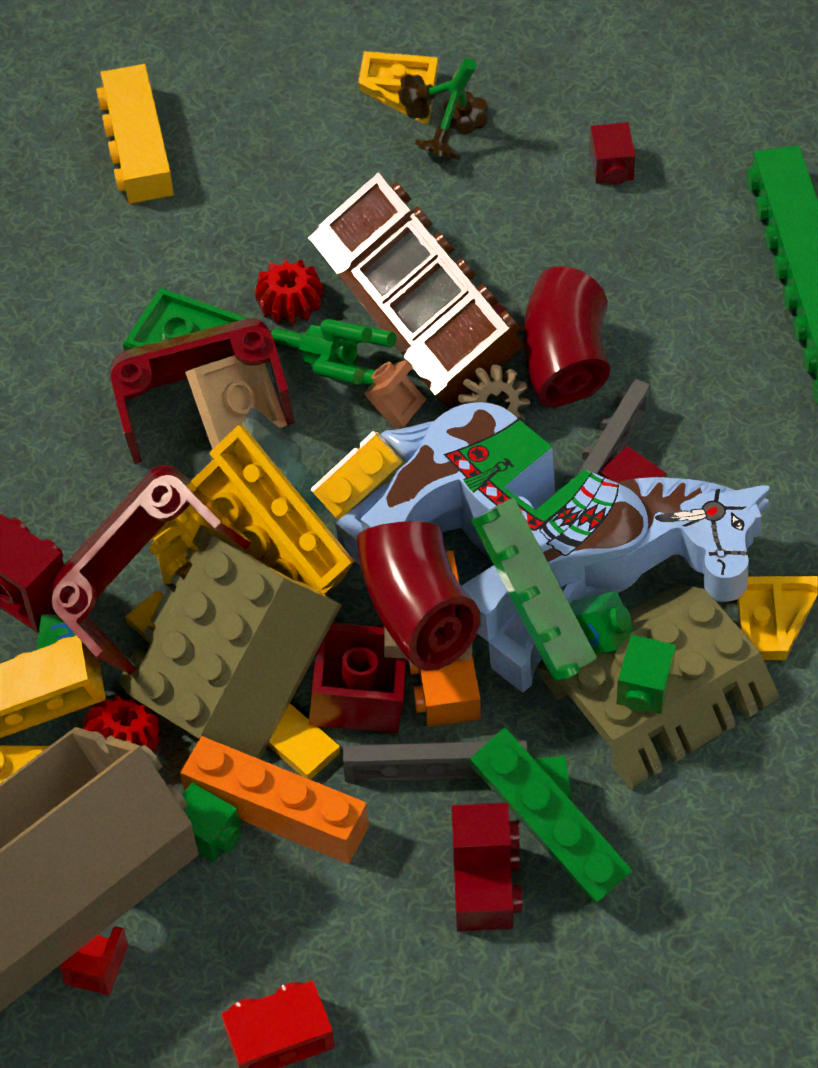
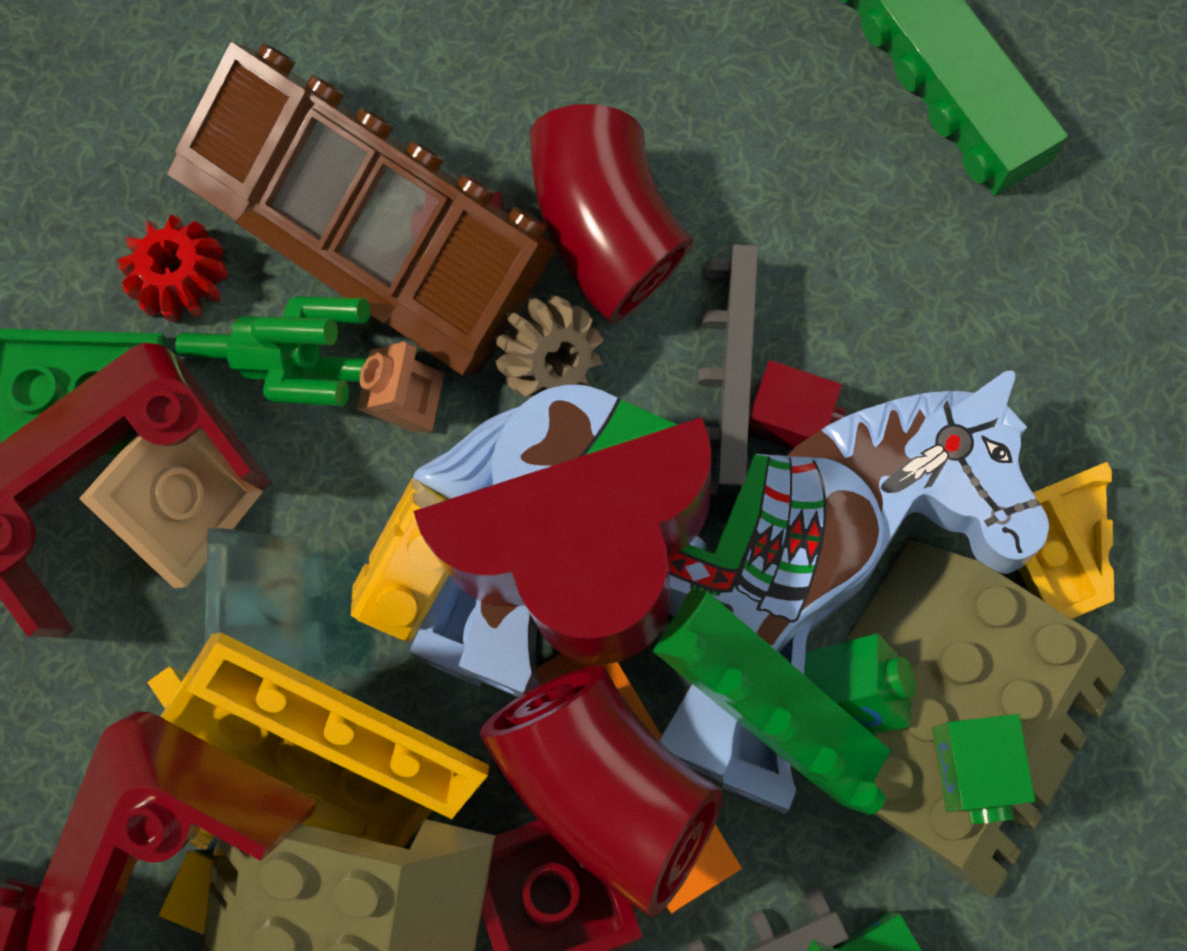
camera: 25 degrees left, 20 degrees up
(460, 459) = (582, 540): none -> dark red brick

